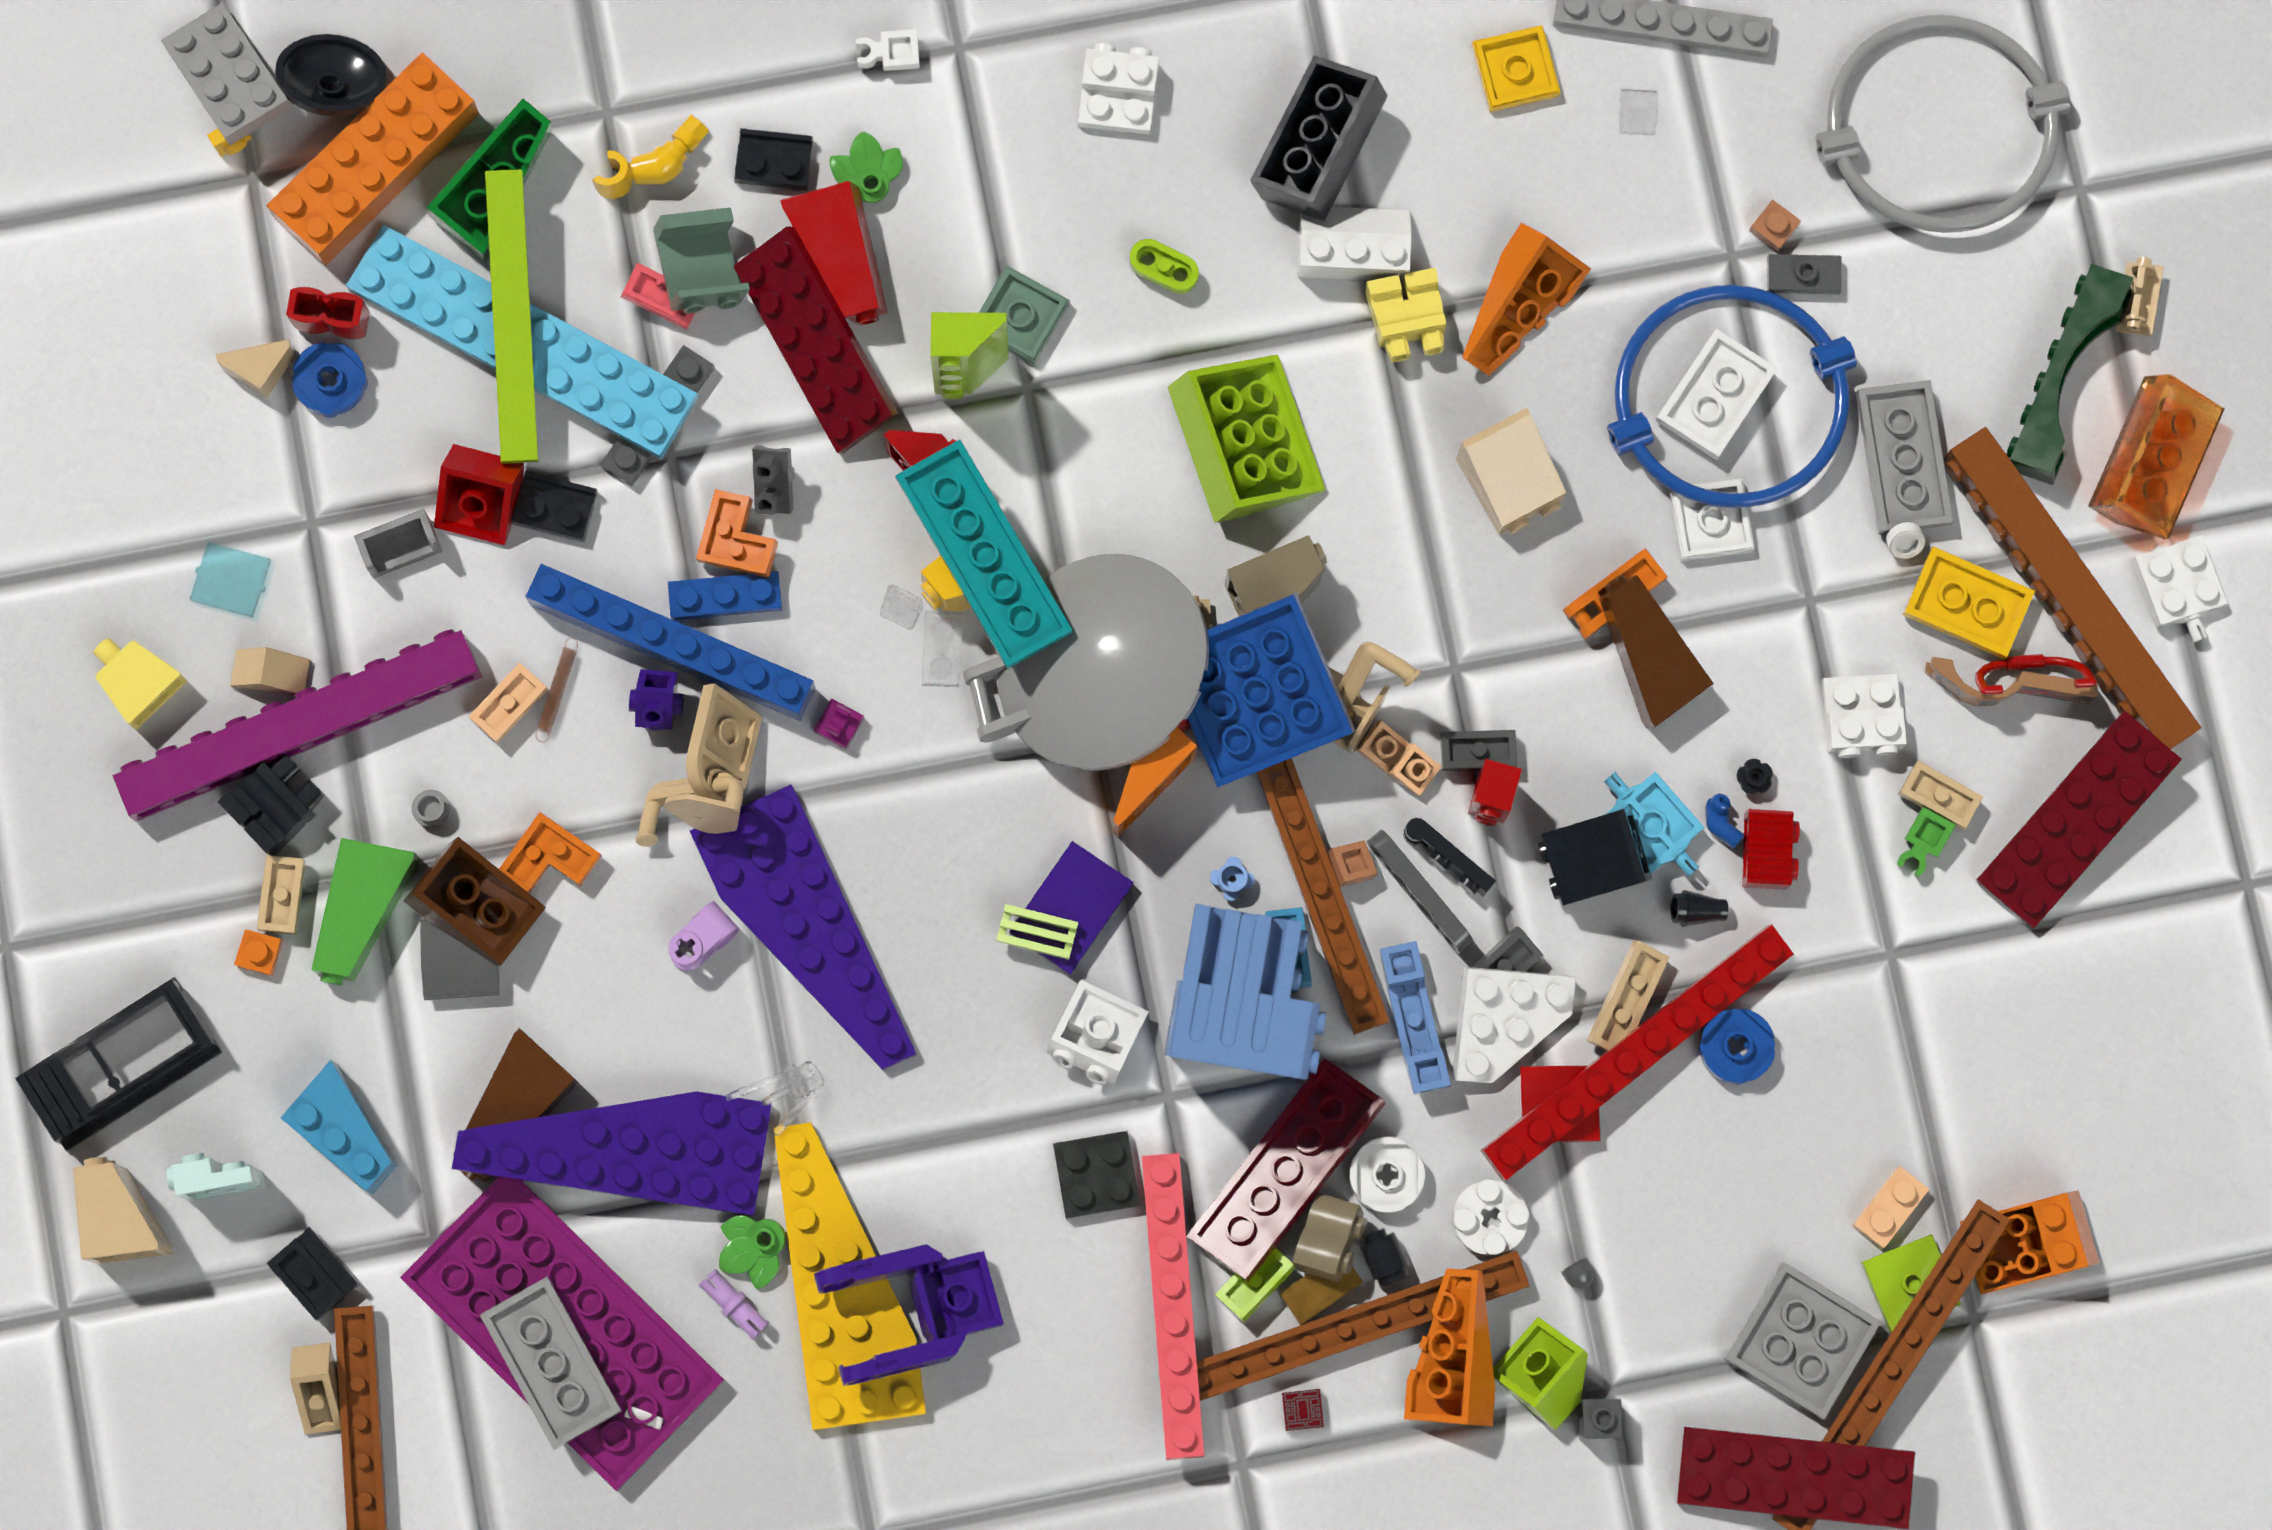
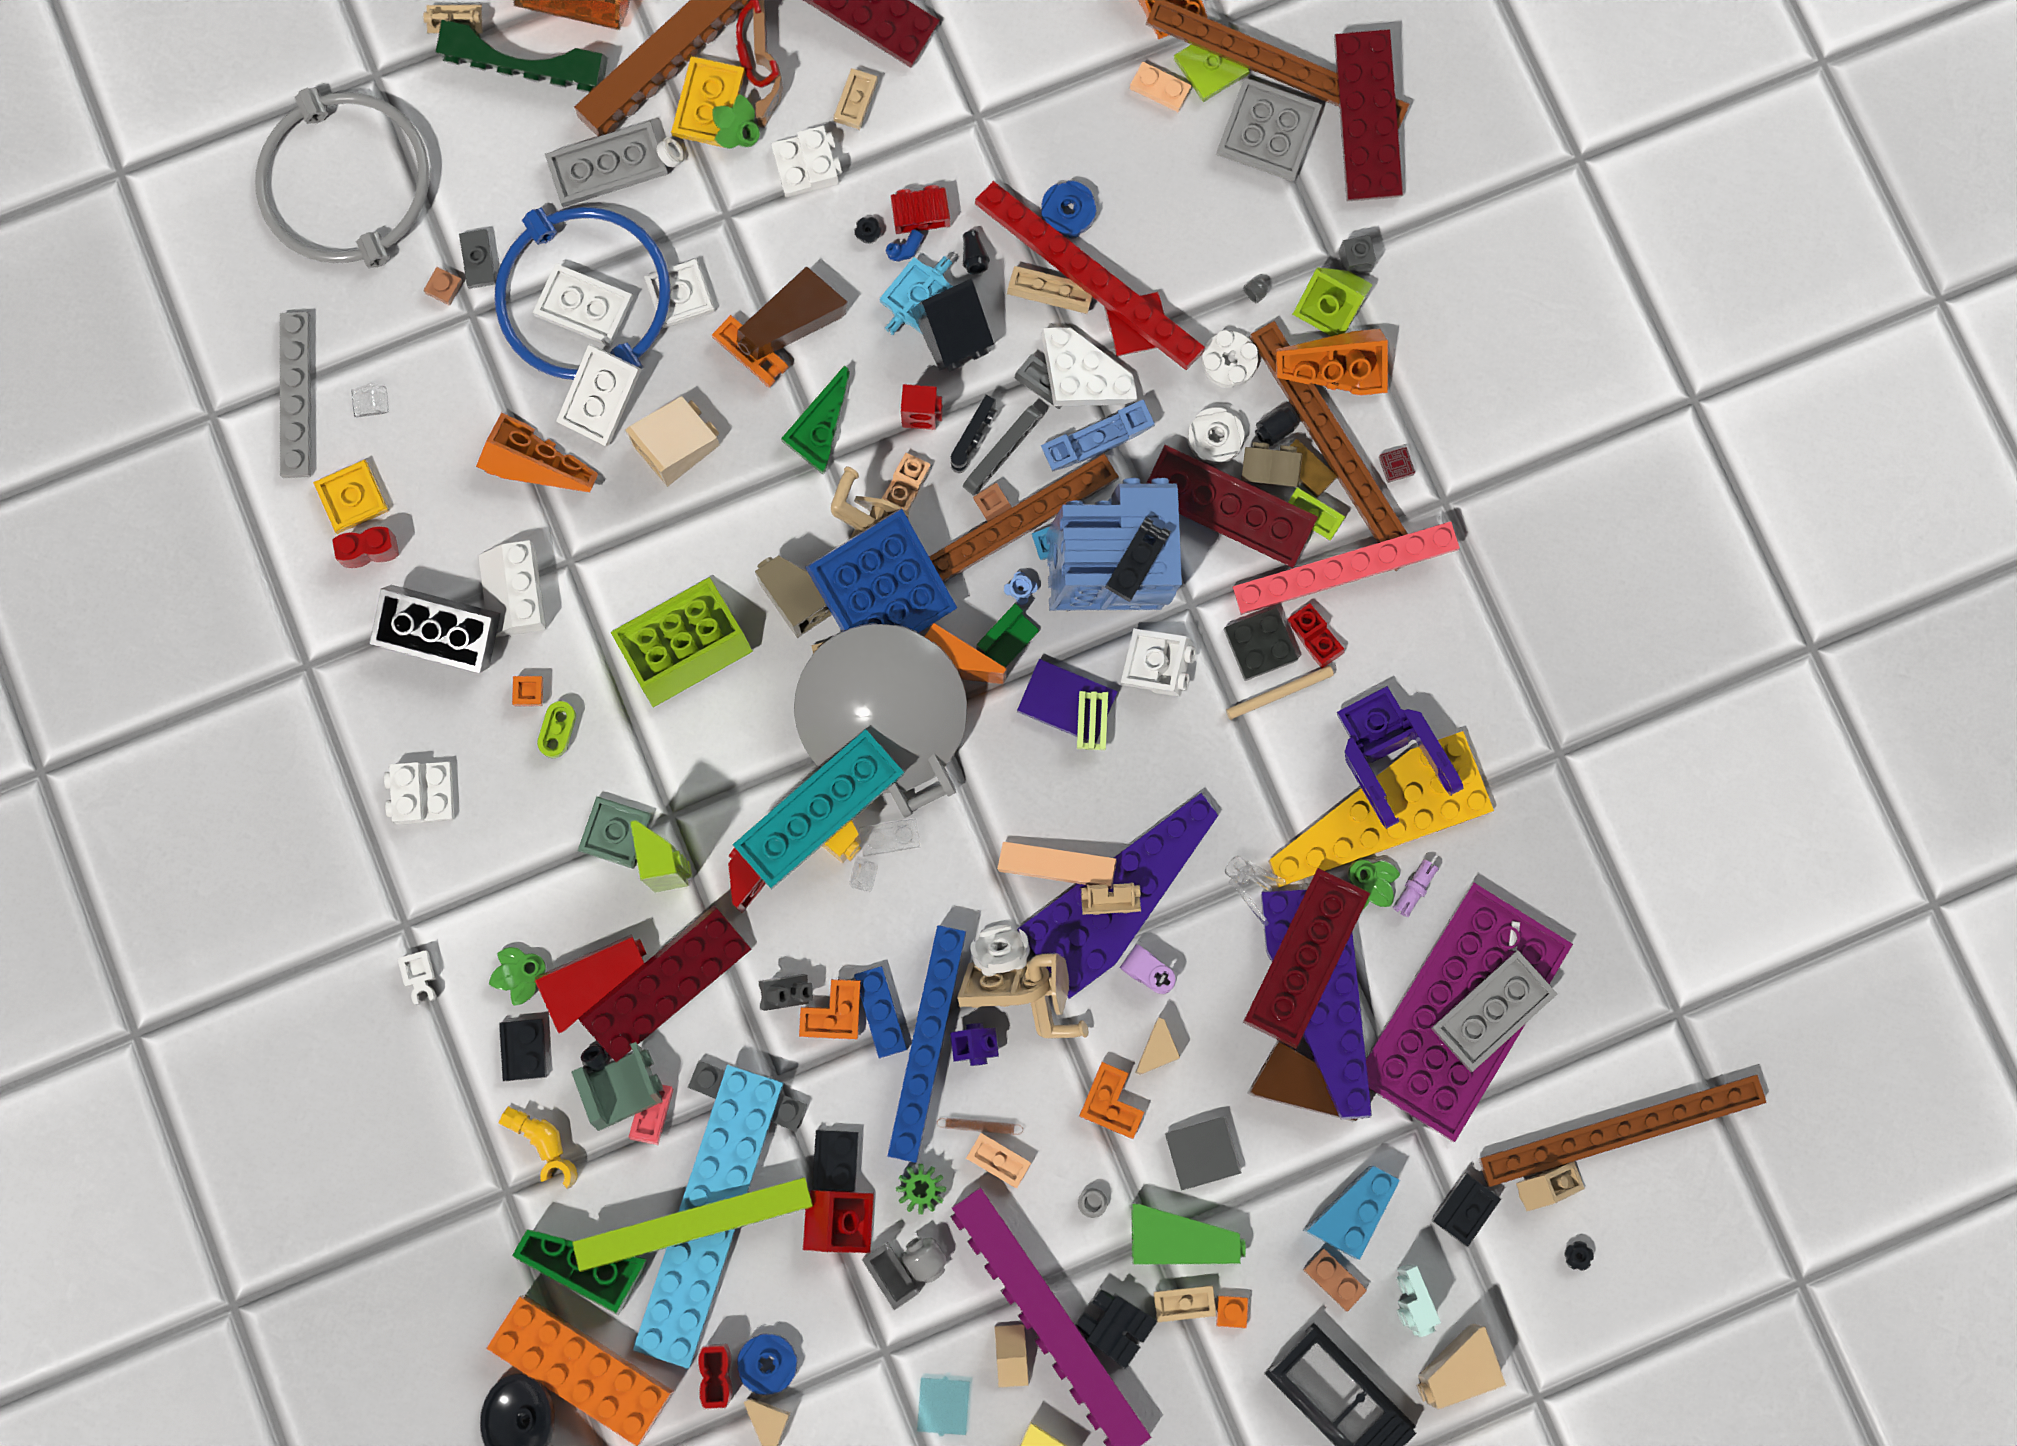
camera: 100 degrees left, 0 degrees up
(232, 1409) = (1571, 1256): none -> black plate
(266, 1089) = (1335, 1280): none -> nougat plate
(408, 588) = (924, 1259): none -> light grey head
(474, 902) = (1160, 1149): reddish brown slope -> none
(484, 611) = (930, 1191): none -> bright green gear
(599, 929) = (1158, 1050): none -> tan slope
(669, 1134) = (1306, 958): none -> dark red plate
(742, 239) = (594, 1058): none -> black plate
(750, 754) = (1012, 957): none -> white plate
(795, 911) = (1098, 900): none -> tan hinge
(838, 724) = (962, 903): magenta tile -> none
(860, 849) = (1056, 864): none -> light nougat tile
(1027, 1185) = (1279, 692): none -> tan bar
(1092, 1249) = (1315, 635): none -> red slope
(1169, 848) = (1008, 637): none -> green panel
(1210, 1002) = (1137, 560): none -> black plate
(1220, 239) = (527, 691): none -> orange plate
(1409, 319) = (559, 540): light yellow hips -> none
(1442, 70) = (358, 550): none -> red brick
(1470, 748) = (888, 428): dark grey plate -> none
(1495, 658) = (816, 427): none -> green wing
(1588, 390) = (598, 395): none -> white plate
(1927, 835) = (887, 103): bright green plate -> none
(1930, 625) = (733, 121): none -> bright green plate

